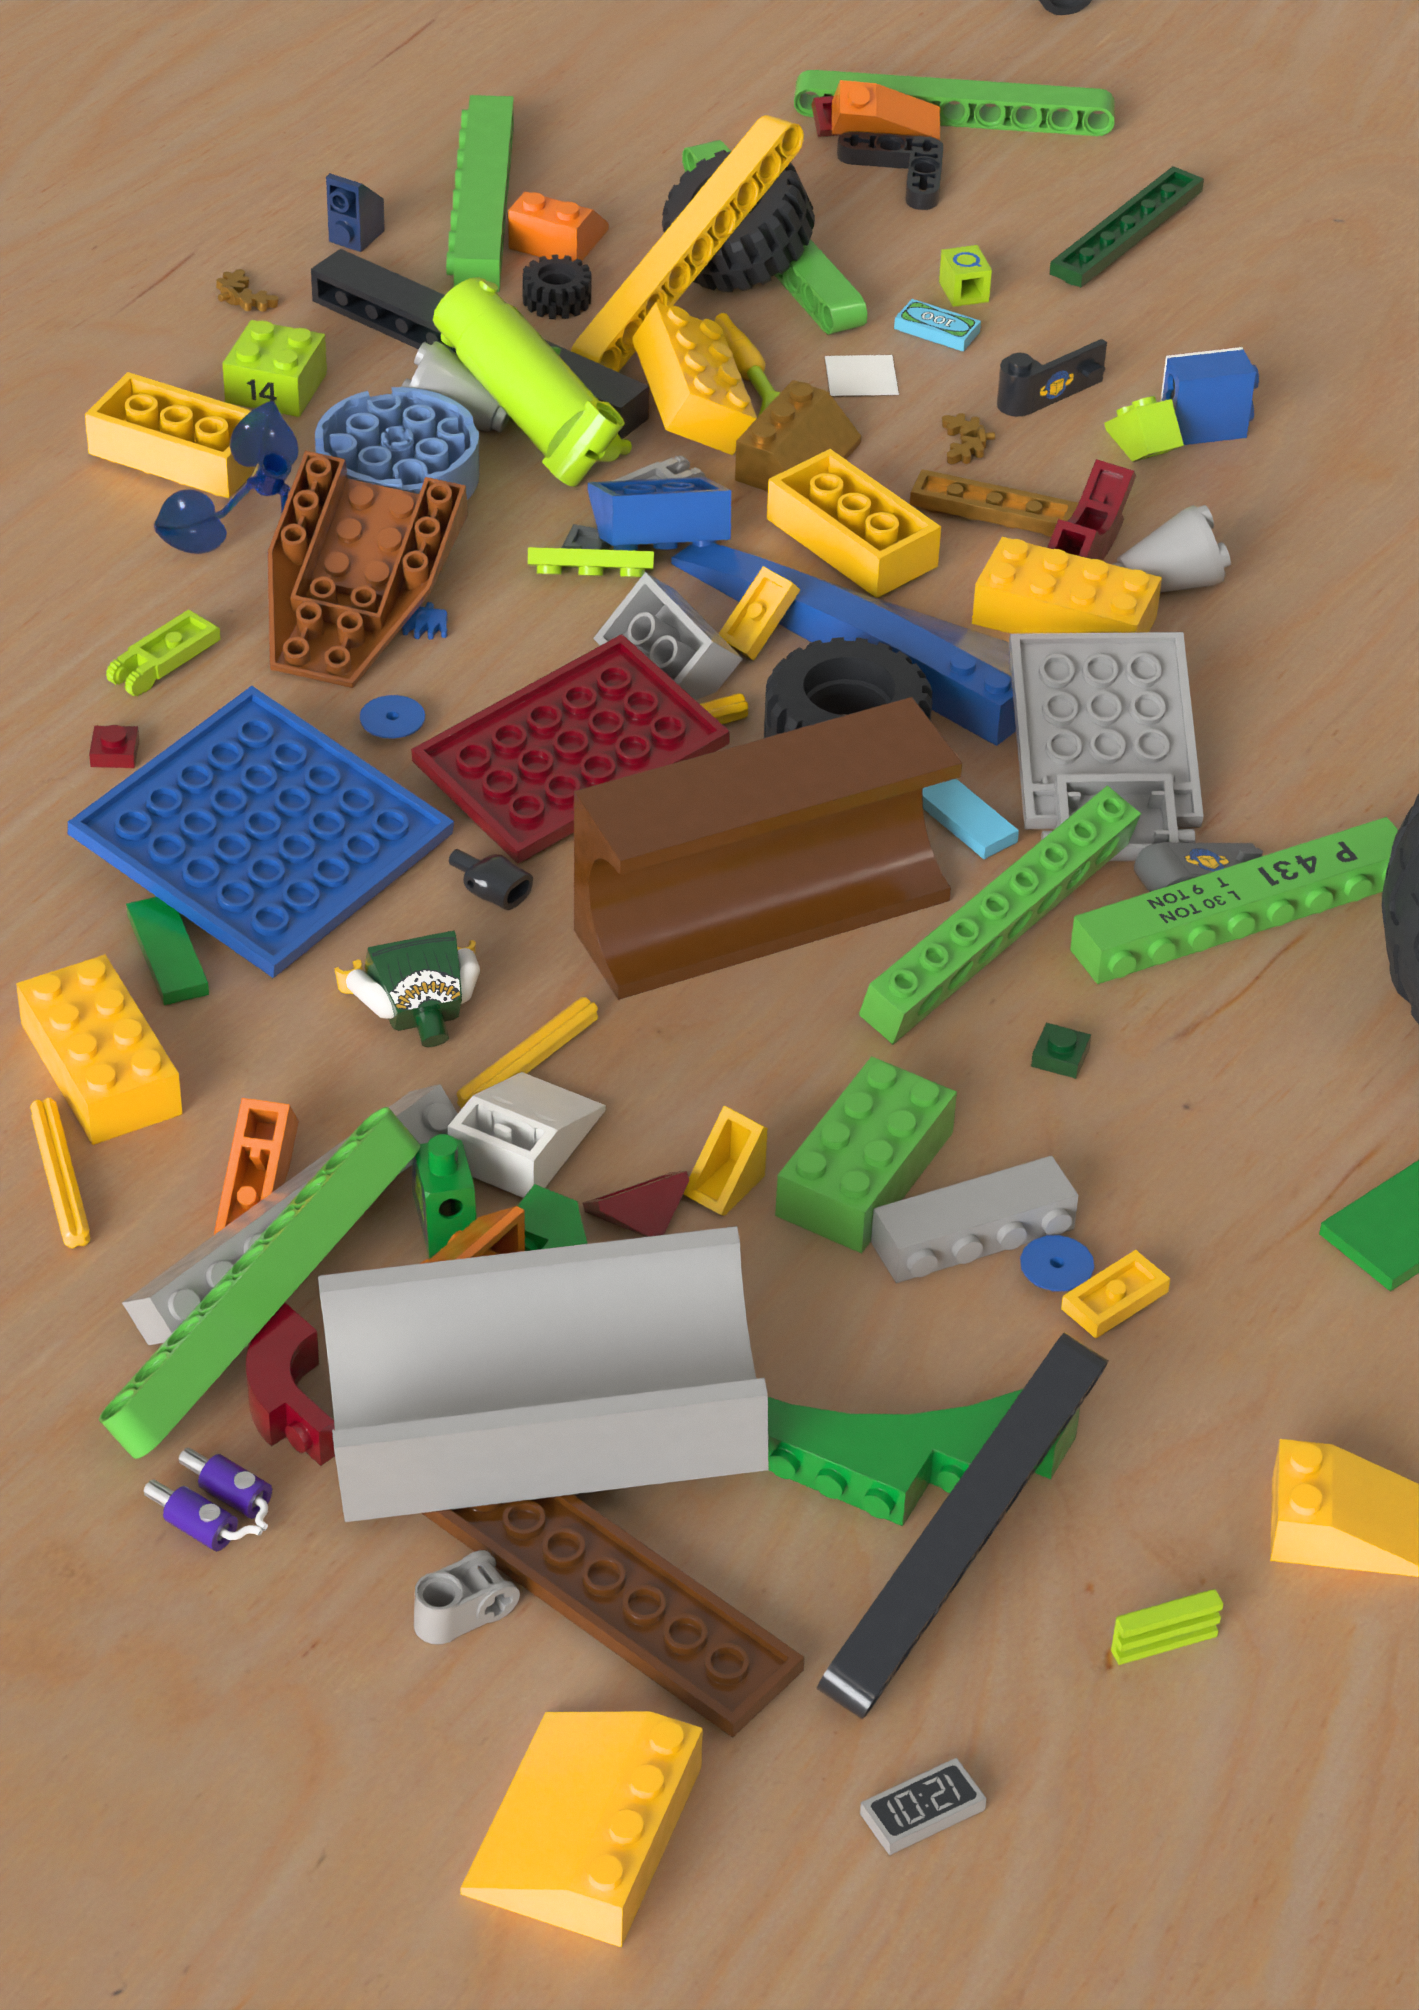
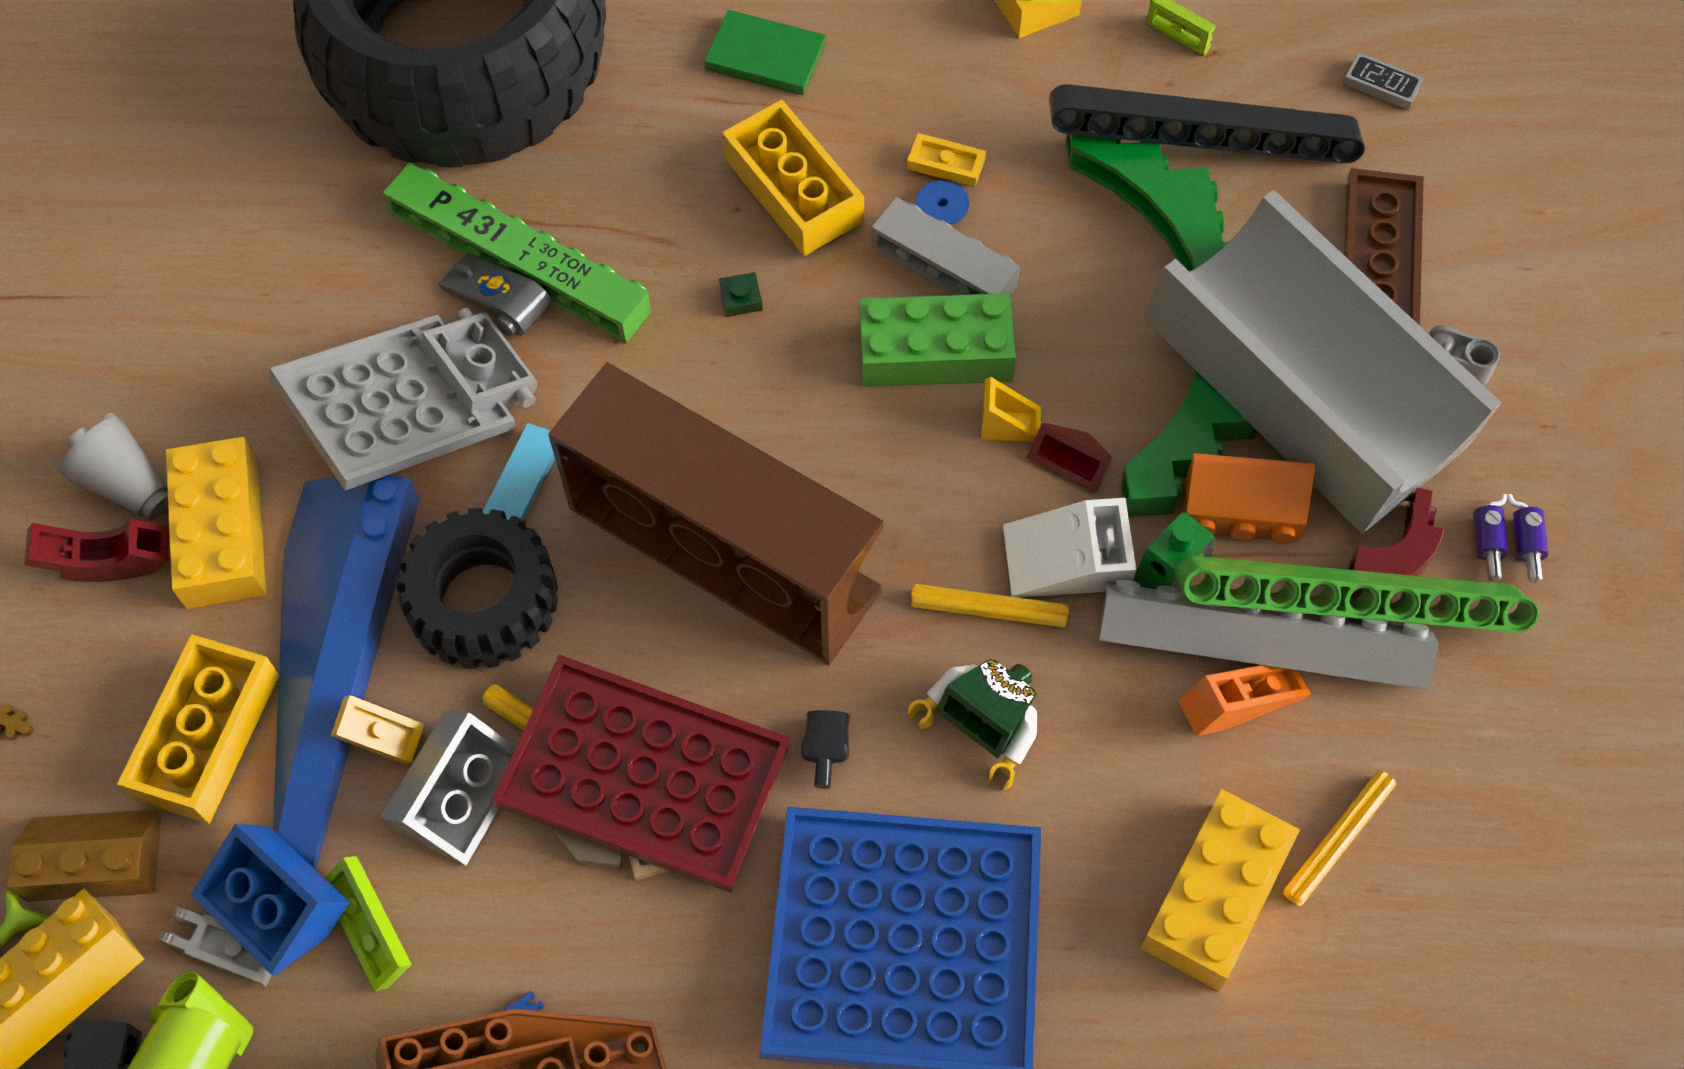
camera: 120 degrees left, 20 degrees up
(167, 950) = (1073, 930): green tile -> none
(392, 716) = (680, 952): blue piece -> none
(584, 538) = (333, 958): dark grey tile -> none
(588, 1820) = (1537, 213): yellow slope -> none
(989, 502) = (93, 651): pearl gold plate -> none
(998, 915) = (677, 370): bright green brick -> none
(1178, 1134) = (793, 177): none -> yellow brick

